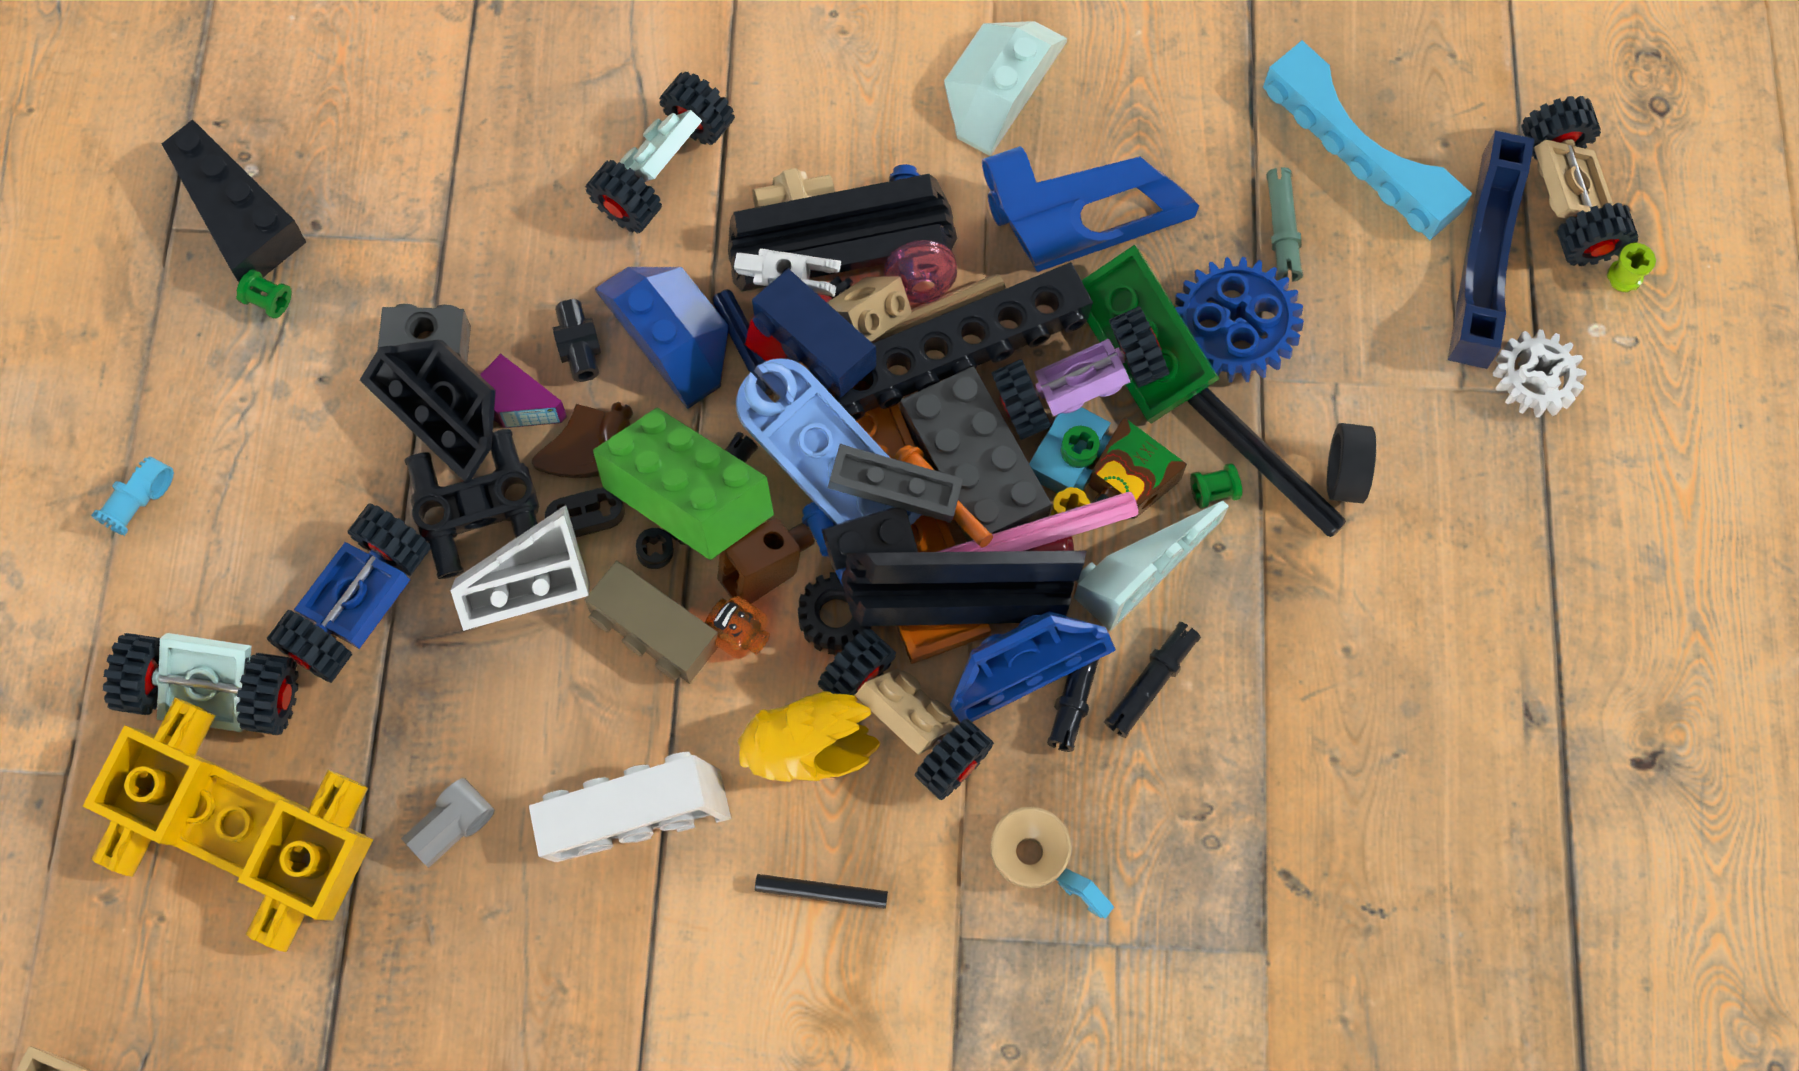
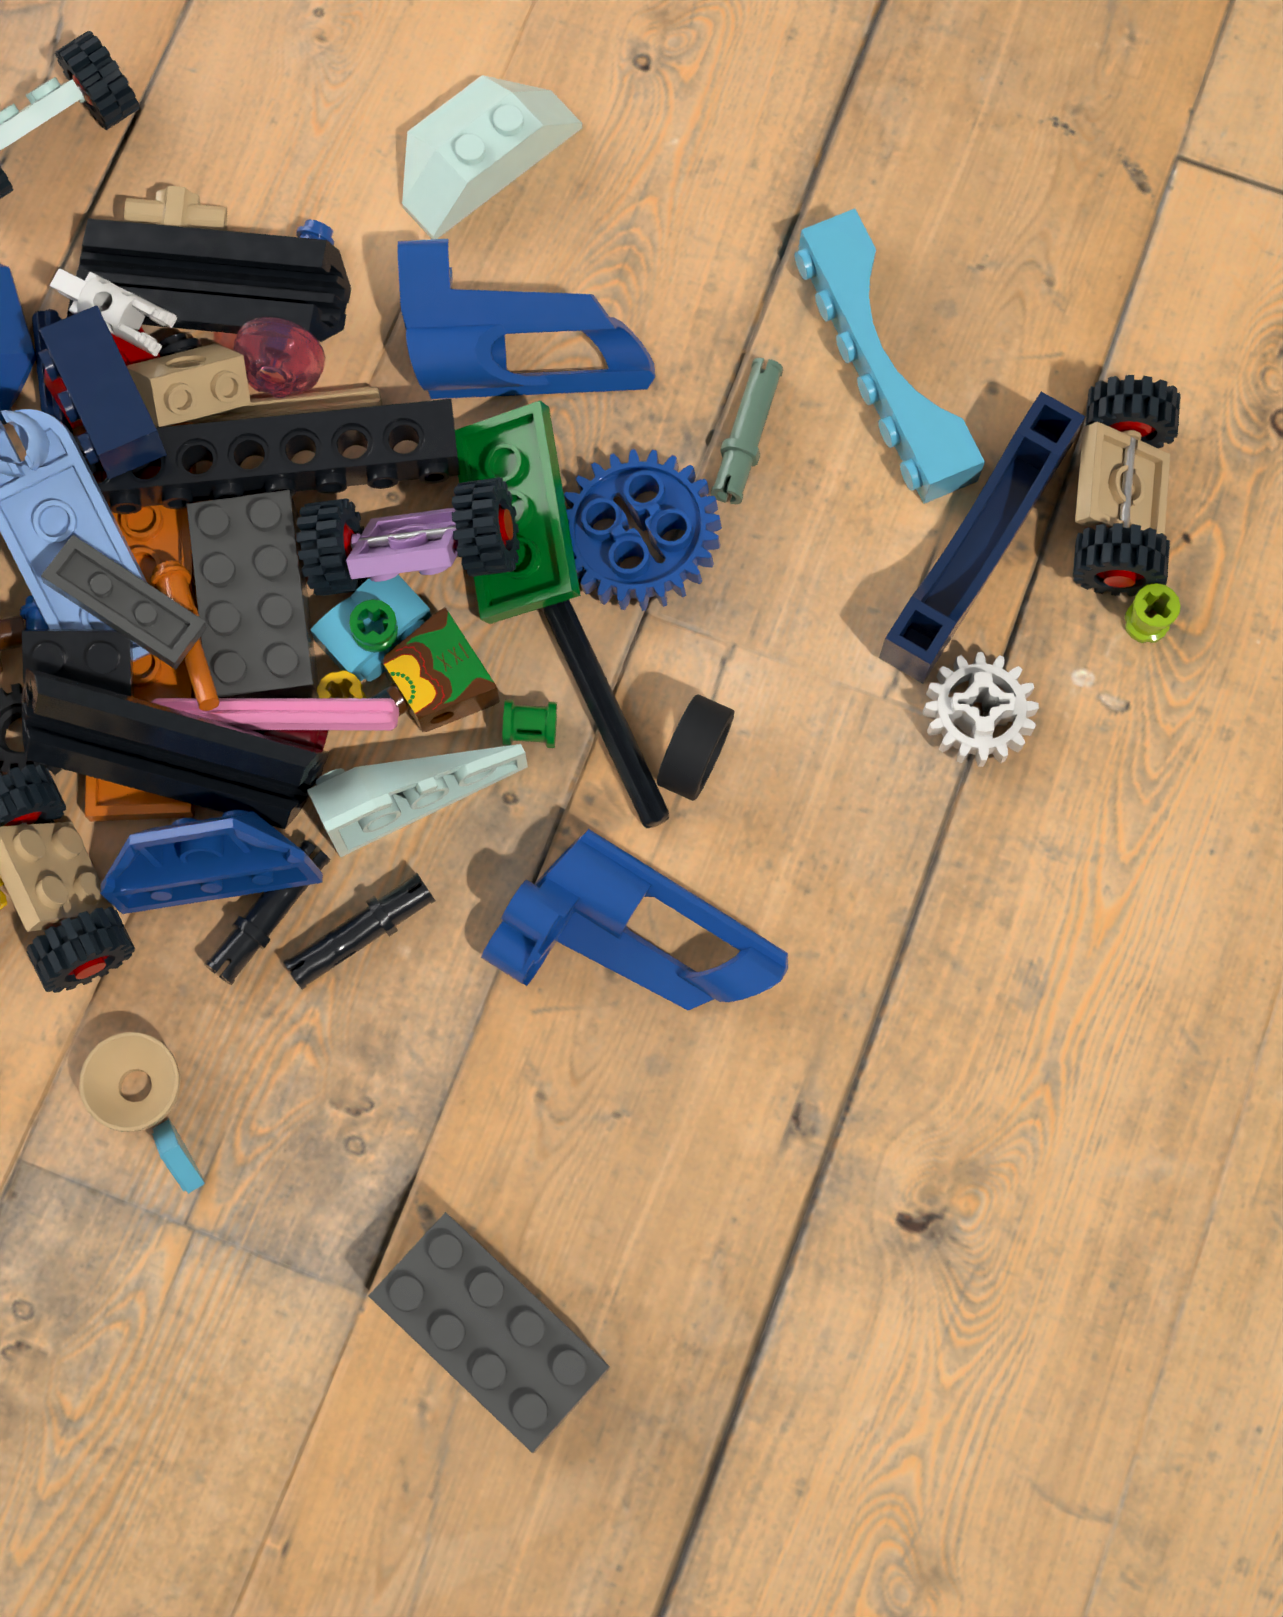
camera: 20 degrees right, 5 degrees up
(1317, 604) = (586, 907): none -> blue panel
(1380, 945) = (489, 1332): none -> dark grey brick

